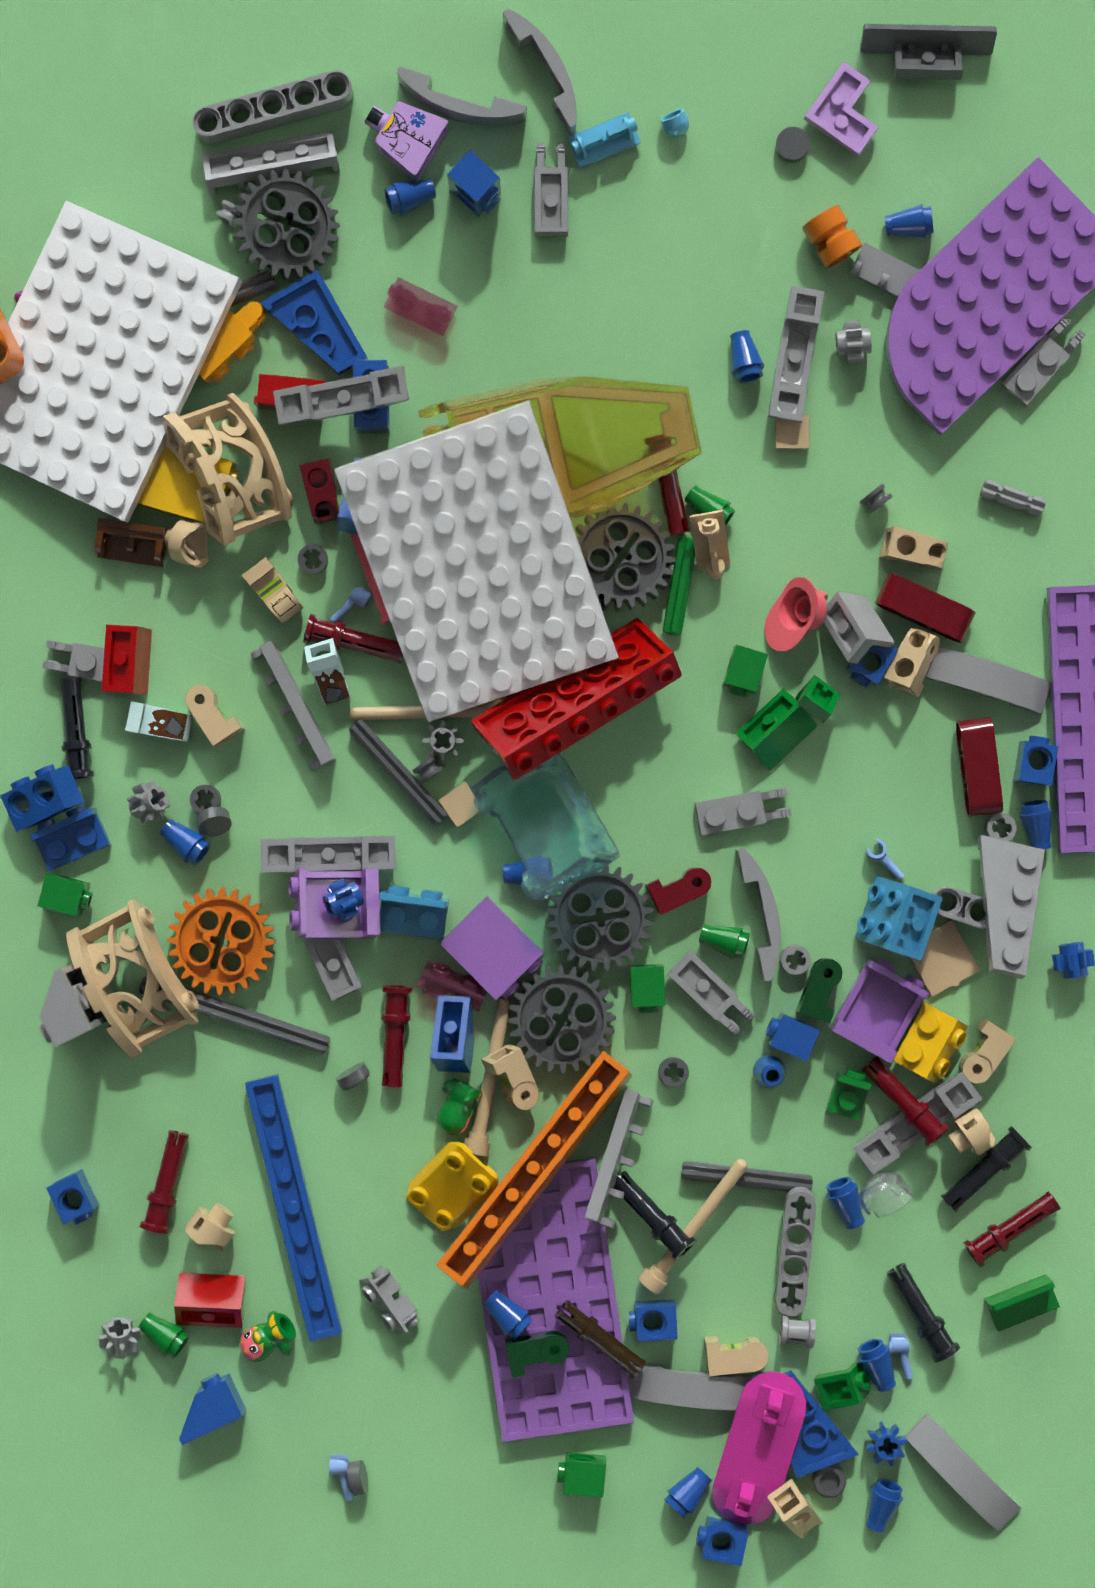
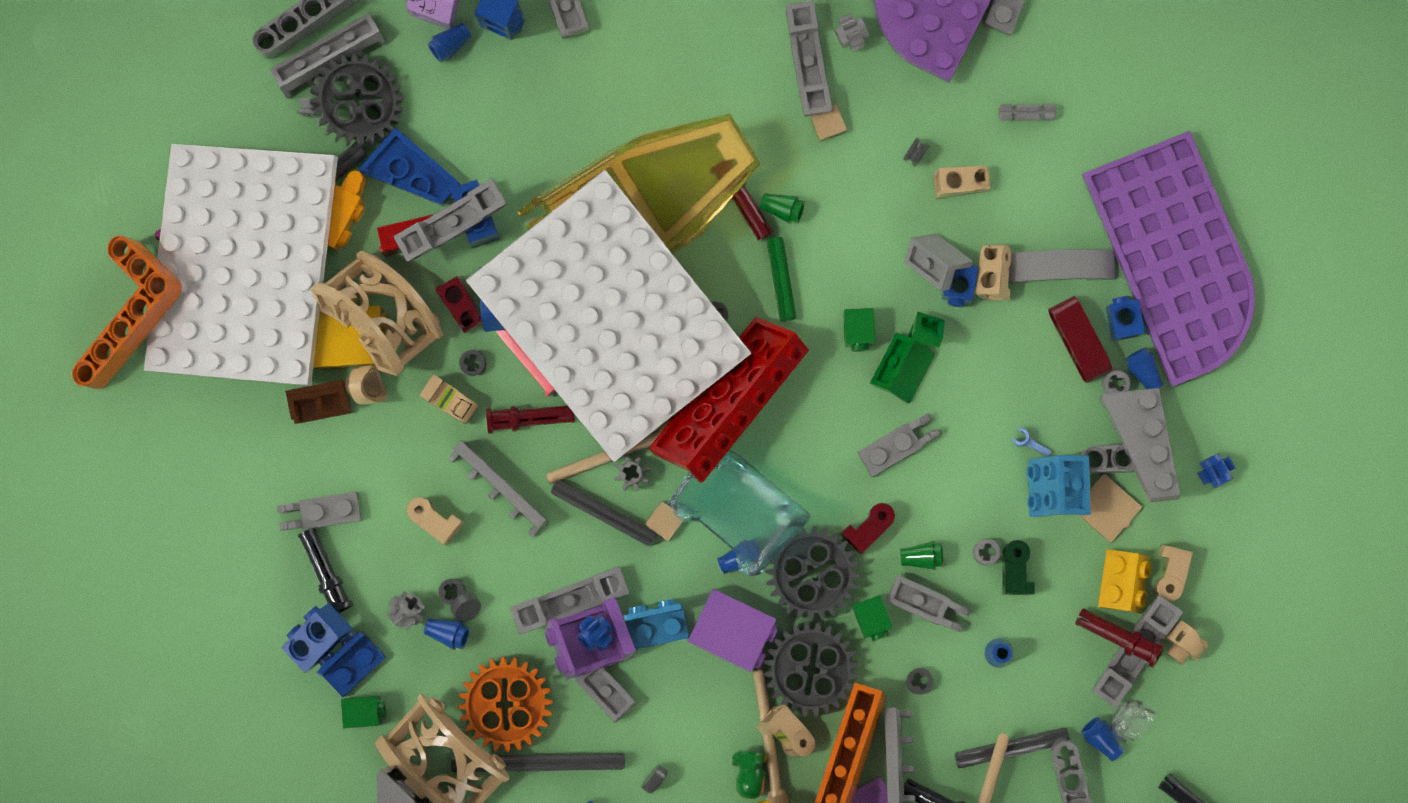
camera: 10 degrees left, 5 degrees down
(126, 659) = (347, 498): red panel -> none
(158, 722) = (391, 541): leg -> none
(327, 672) = (517, 450): leg -> none
(358, 596) = (520, 379): light blue hand -> none
(395, 1020) = (673, 719): dark red pin -> none
(420, 306) = (489, 127): clear pink hinge -> none
(428, 769) = (628, 501): dark grey bush -> none
(439, 979) = (698, 672): clear pink hinge -> none
(453, 1034) = (725, 714): blue slope -> none
(645, 573) = (749, 278): dark grey gear -> none
(710, 543) = (793, 234): tan hinge -> none
(745, 357) = (769, 77): blue cone -> none
(766, 954) = (963, 555): light grey slope -> none
(792, 1036) = (1006, 615): blue brick -> none
(794, 614) = (883, 267): coral piece -> none
(848, 1094) = (1071, 648): green bracket -> none
(879, 1008) = (1071, 567): medium lavender panel -> none
(925, 607) = (988, 225): dark red beam -> none
(997, 1158) = (1214, 657): black pin -> none
(998, 1237) = (1240, 723): dark red pin -> none
(1022, 1302) = (1280, 771): green panel -> none

